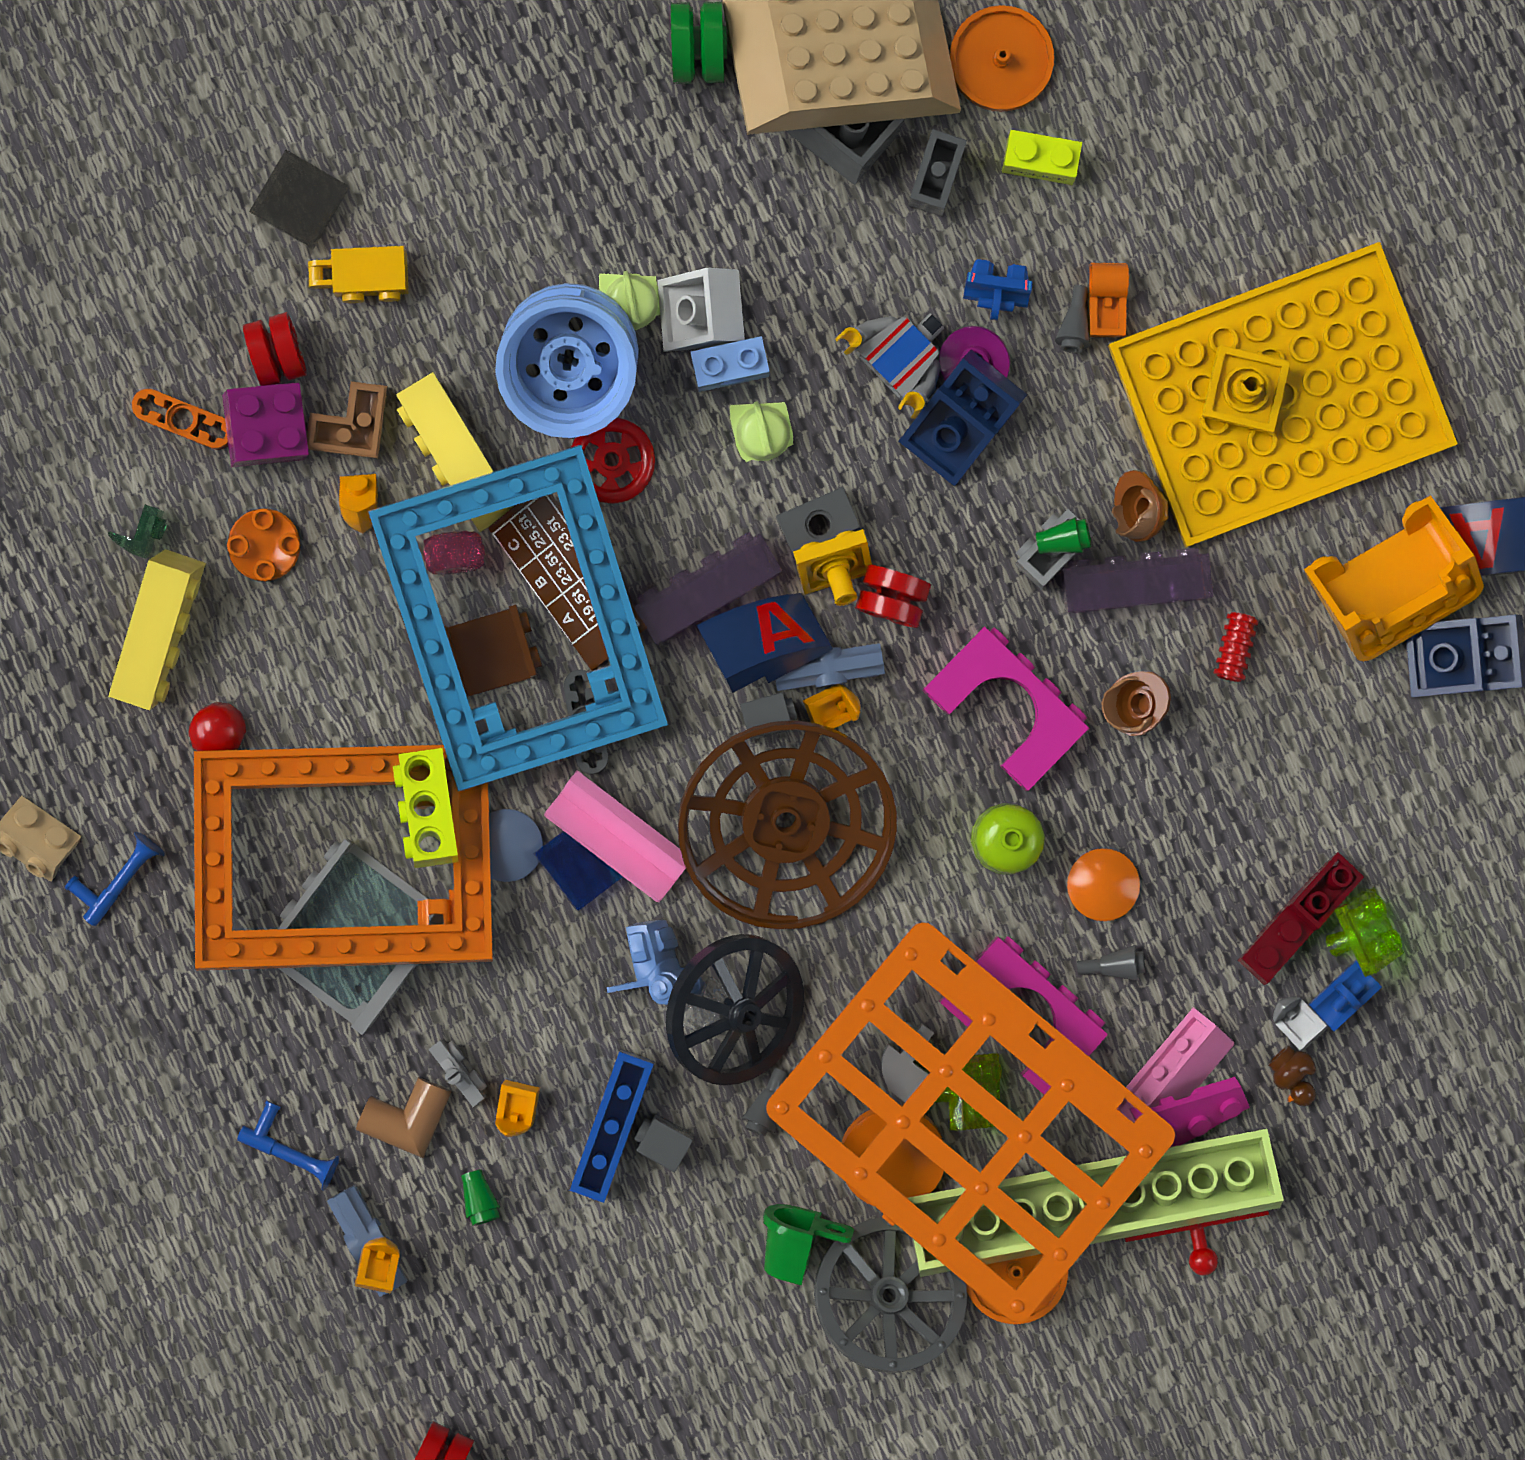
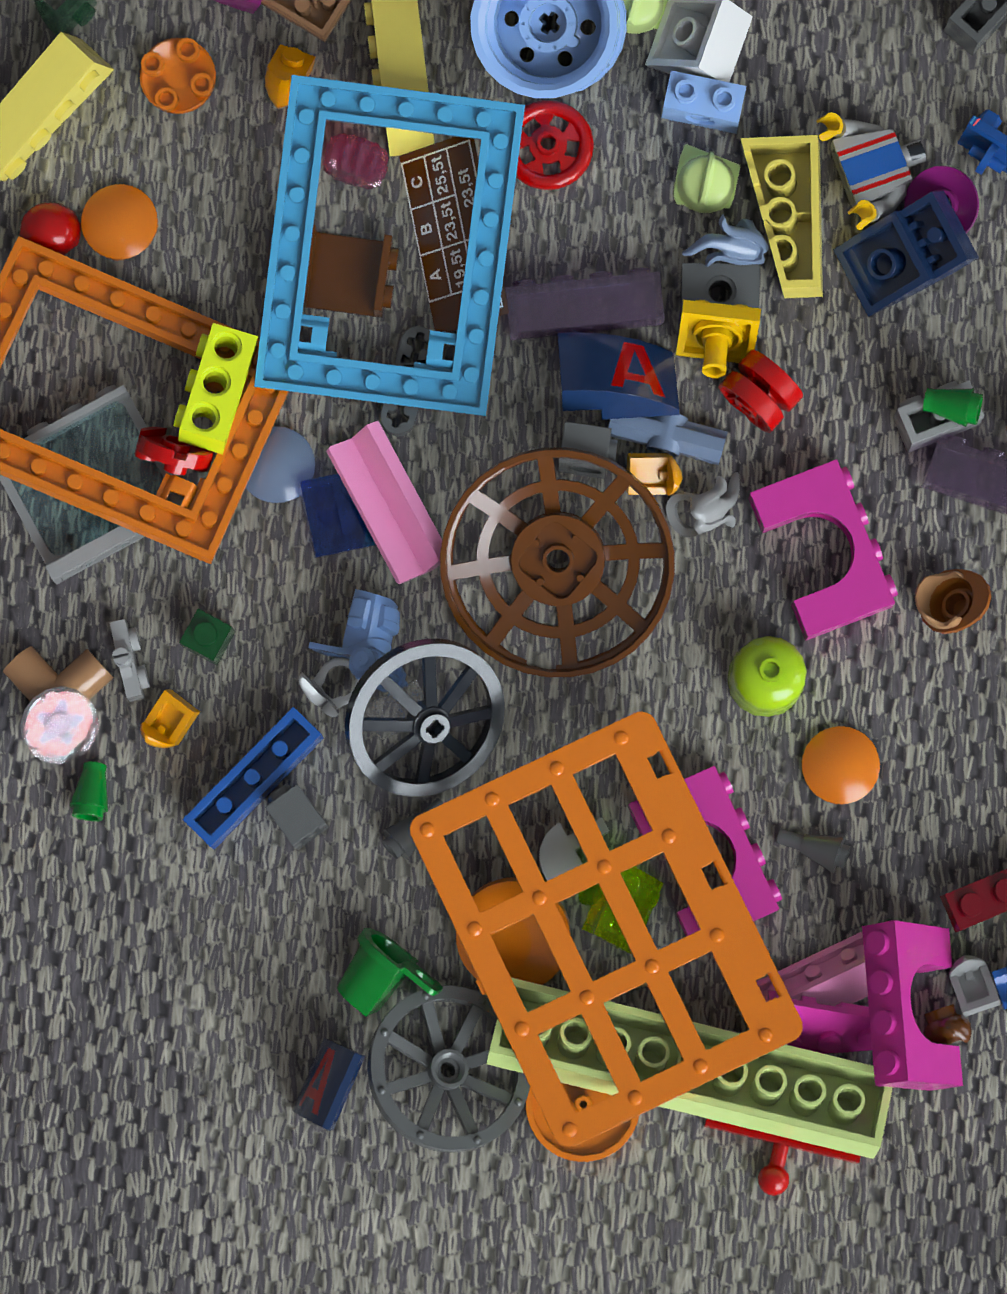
camera: 30 degrees right, 5 degrees down
(273, 695) = (119, 221): none -> orange dish
(406, 880) = (177, 456): none -> red plate
(426, 1155) = (59, 725): none -> clear tile
(516, 1022) = (207, 637): none -> dark green brick
(632, 1029) = (317, 695): none -> light grey piece
(795, 1356) = (328, 1084): none -> dark blue slope
(816, 480) = (739, 246): none -> sand blue piece
(842, 417) = (789, 199): none -> light yellow wedge
(892, 718) = (706, 508): none -> light grey piece
(1223, 1039) = (899, 1049): none -> dark pink arch

